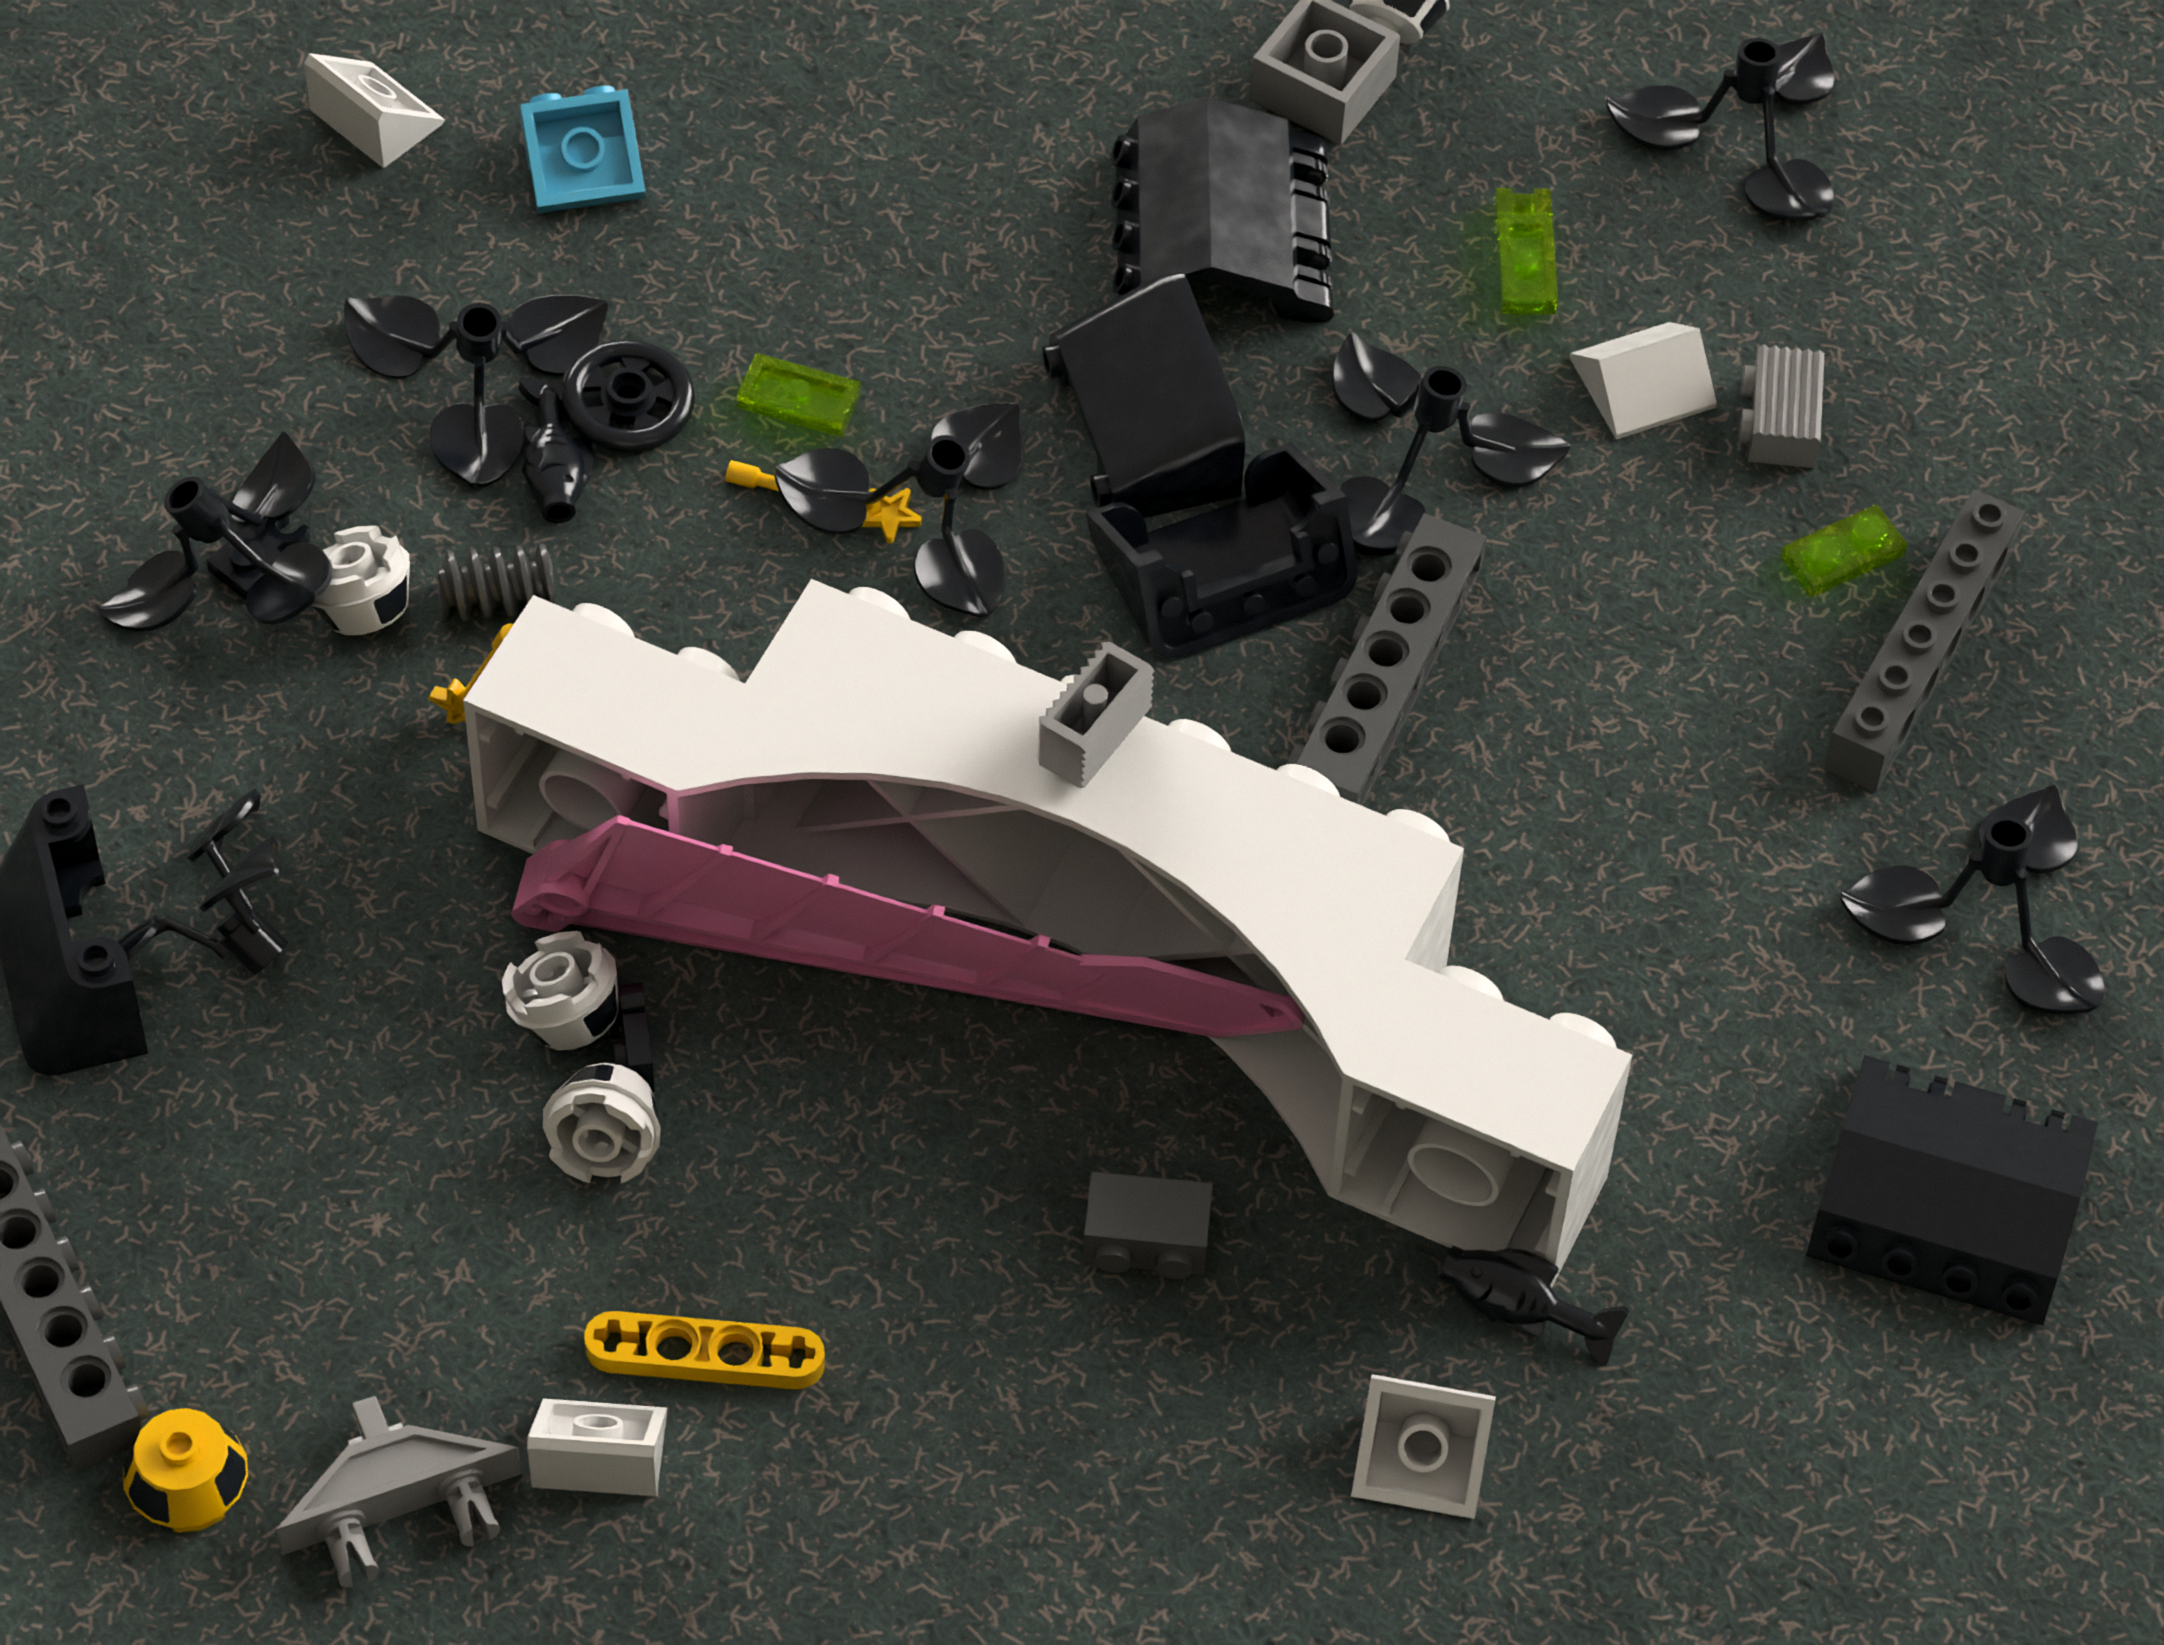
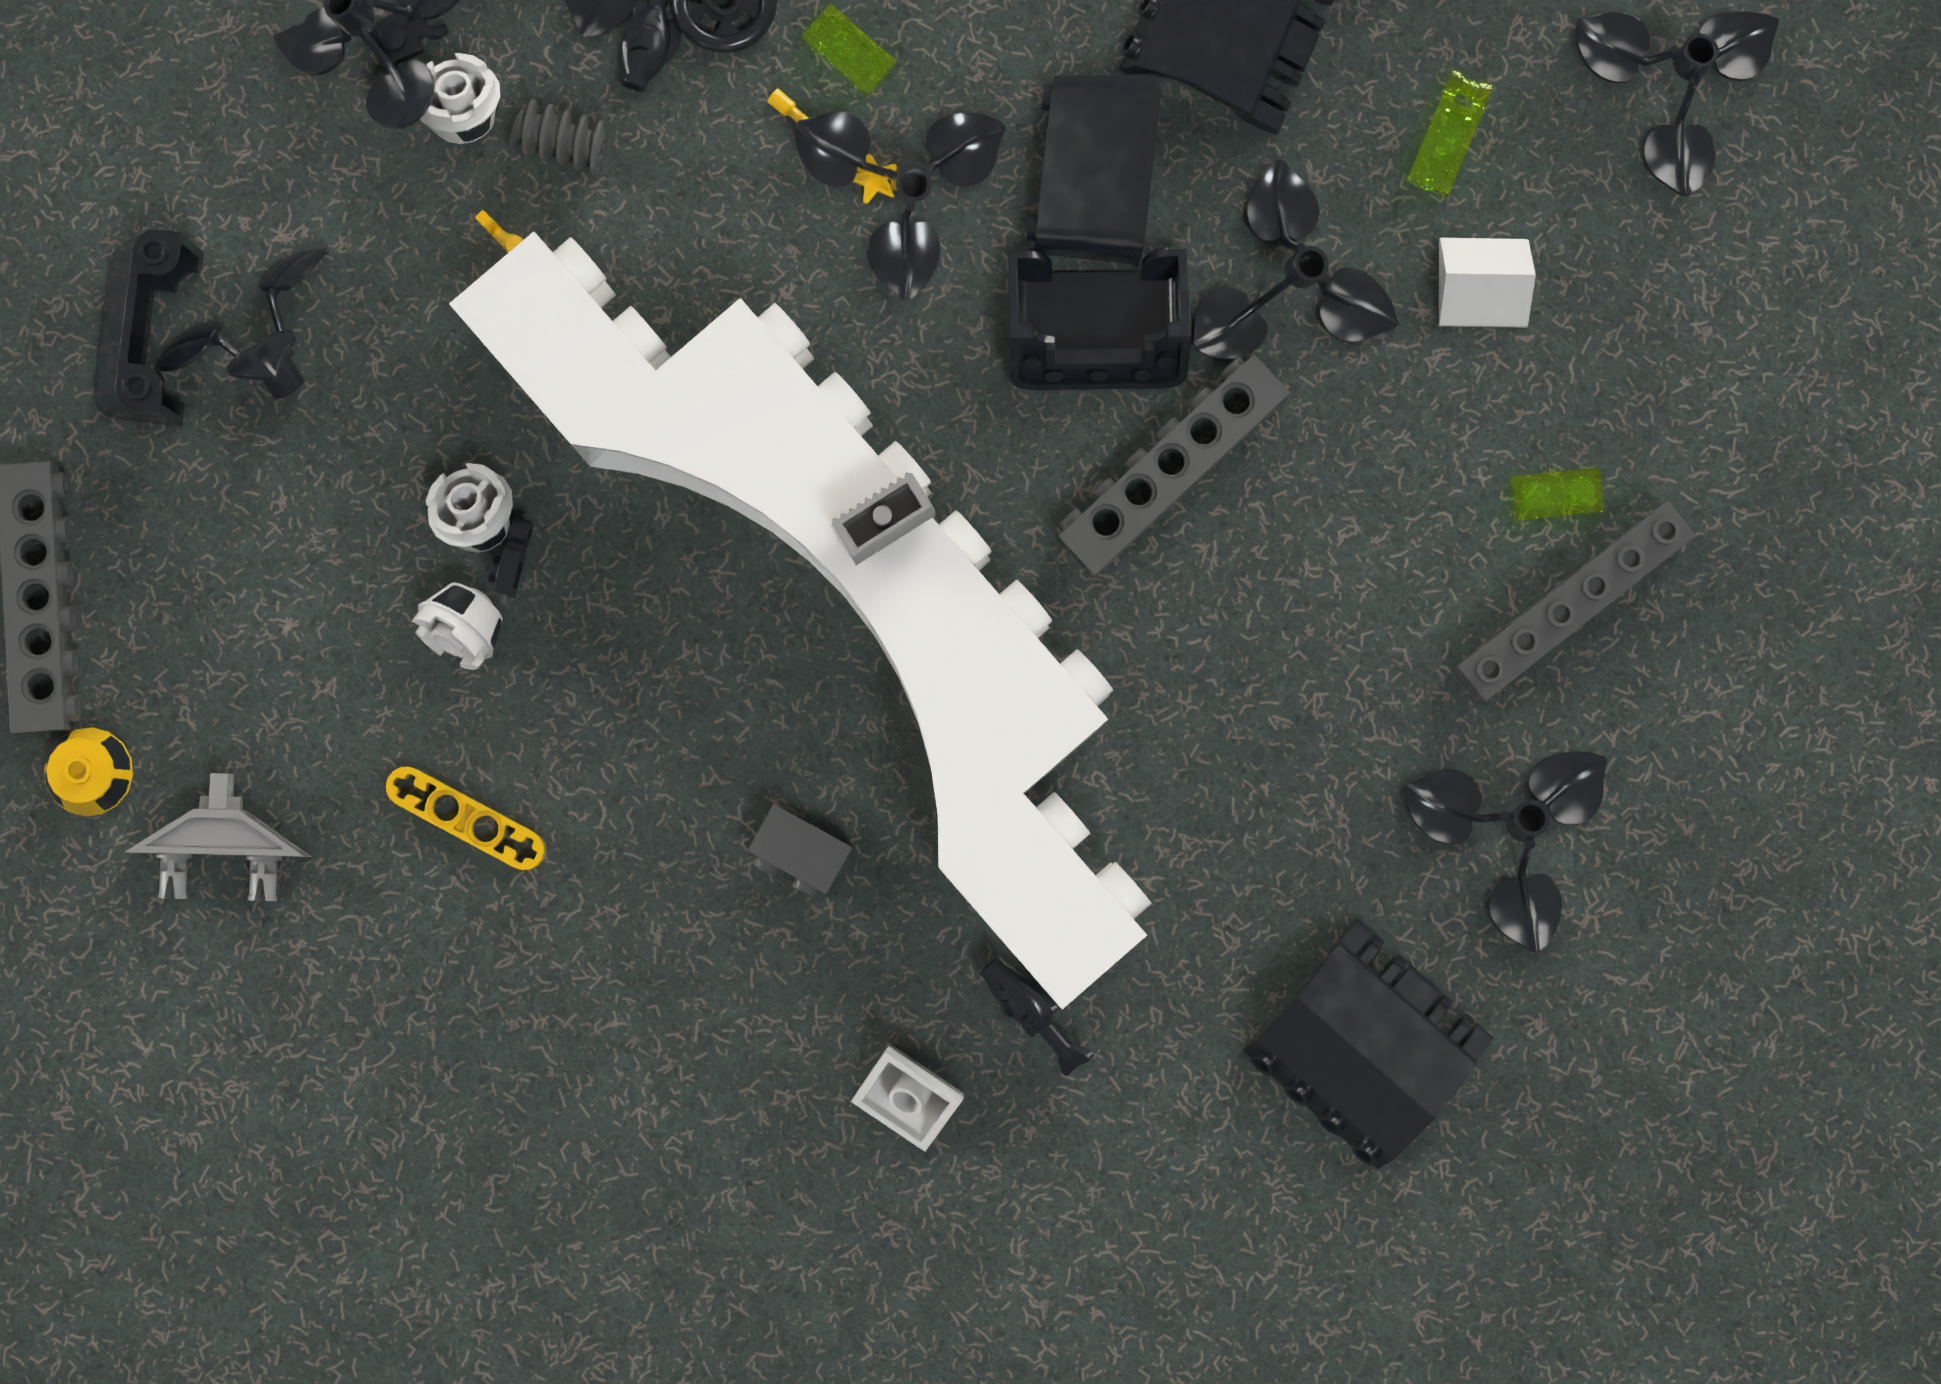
camera: 20 degrees right, 30 degrees up
(597, 1447) = (366, 860): white slope -> none
(713, 898) = (509, 430): bright pink wing -> none
(1784, 406) = (1573, 356): light grey brick -> none

